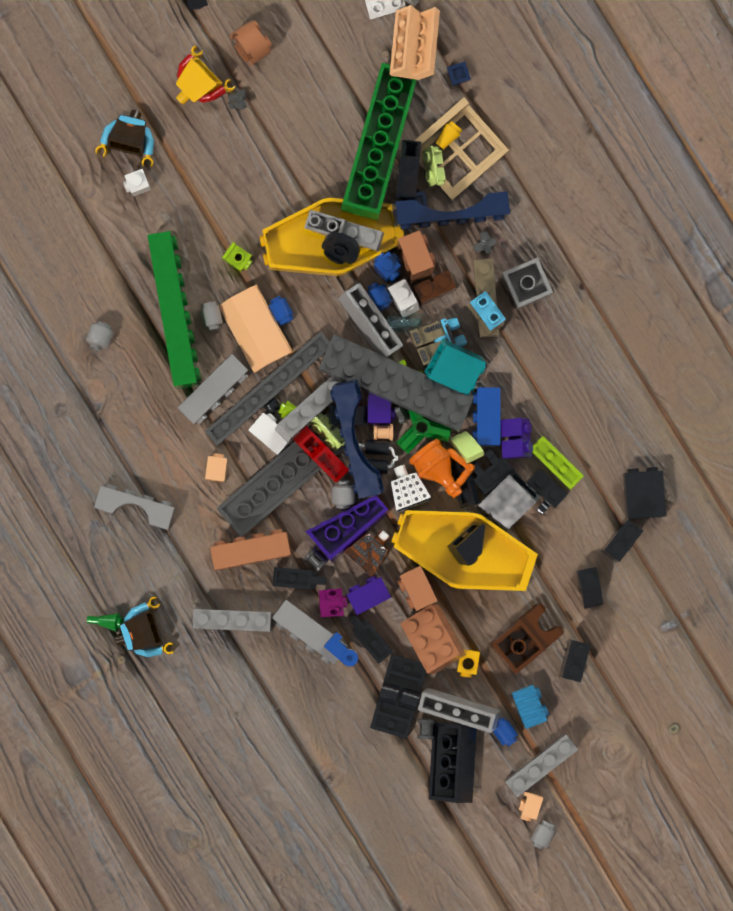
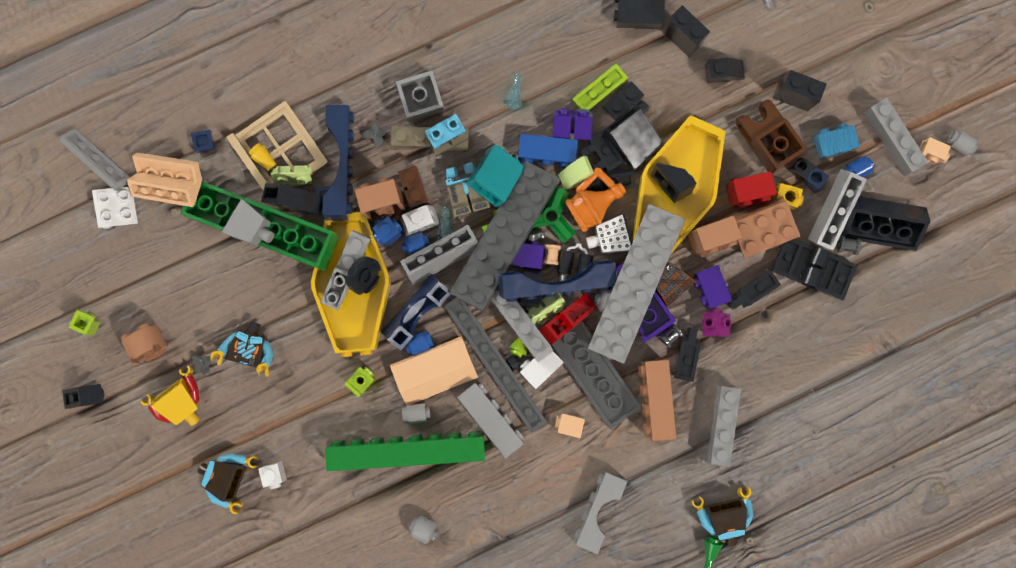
camera: 85 degrees left, 0 degrees up
(257, 143) = (246, 349): none -> torso
(296, 292) = (428, 296): none -> dark blue arch
(306, 629) = (743, 349): light grey brick -> none
(341, 652) = (772, 316): blue leg -> none
(362, 516) = (636, 283): none -> light grey plate
(376, 132) = (248, 225): none -> light grey torso
(469, 623) = (751, 189): none -> red brick
(493, 682) = (809, 174): none -> leg
(538, 377) = (513, 99): none -> clear light blue cone

